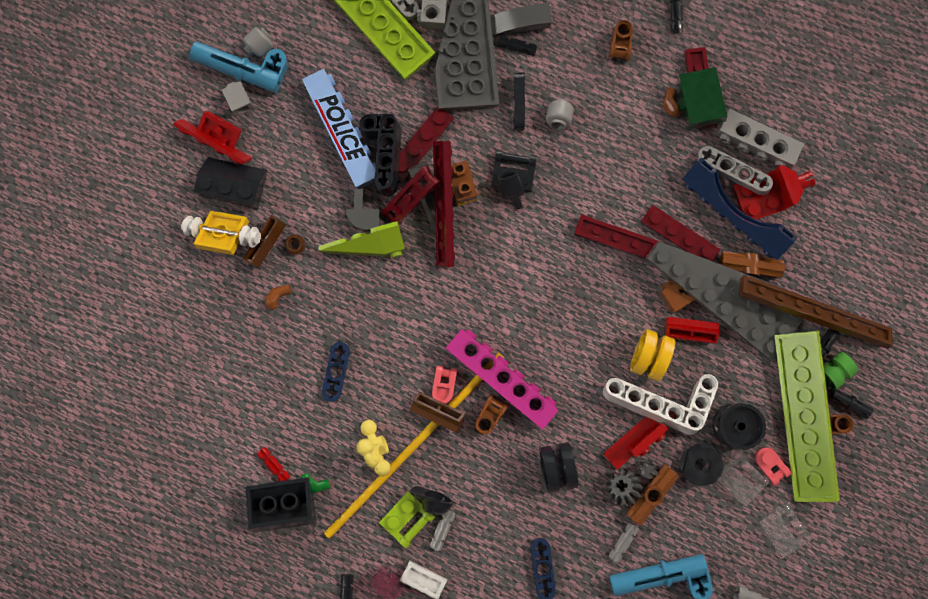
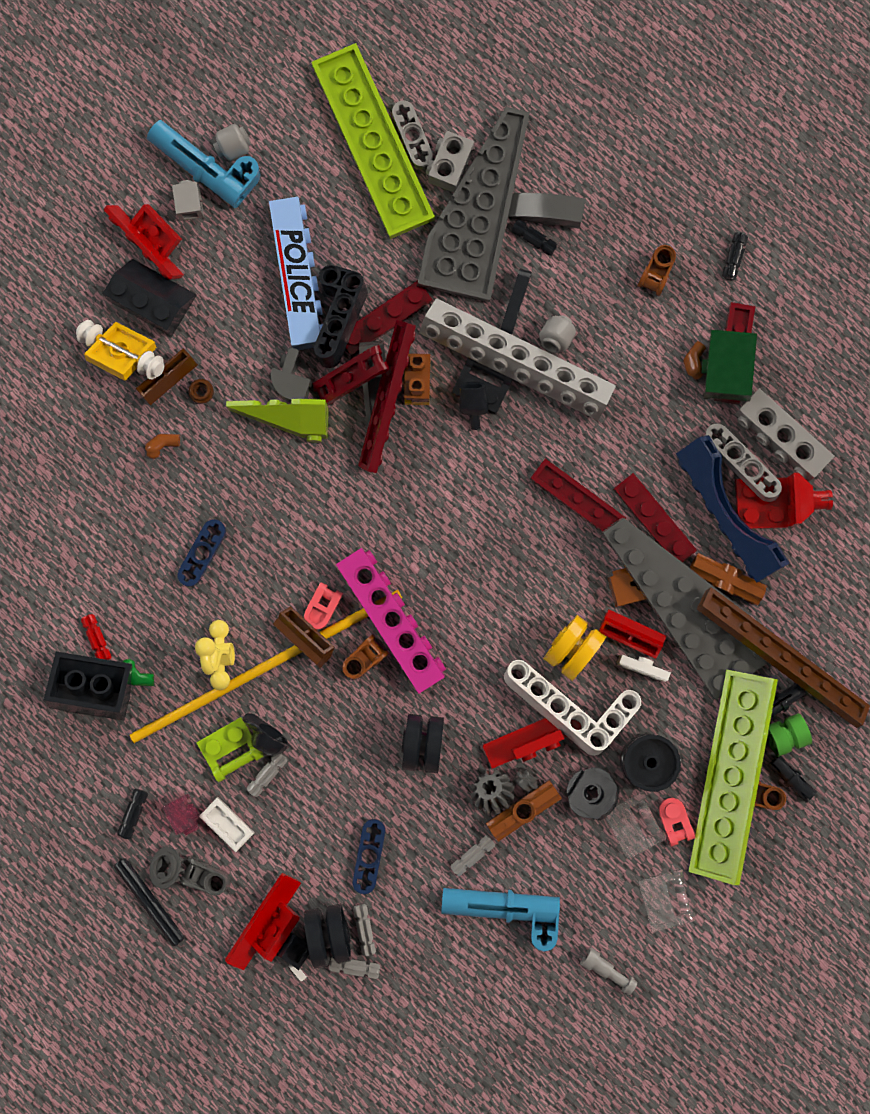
camera: 20 degrees right, 0 degrees up
(535, 143) = (517, 359): none -> light grey brick
(709, 352) = (644, 667): none -> white plate

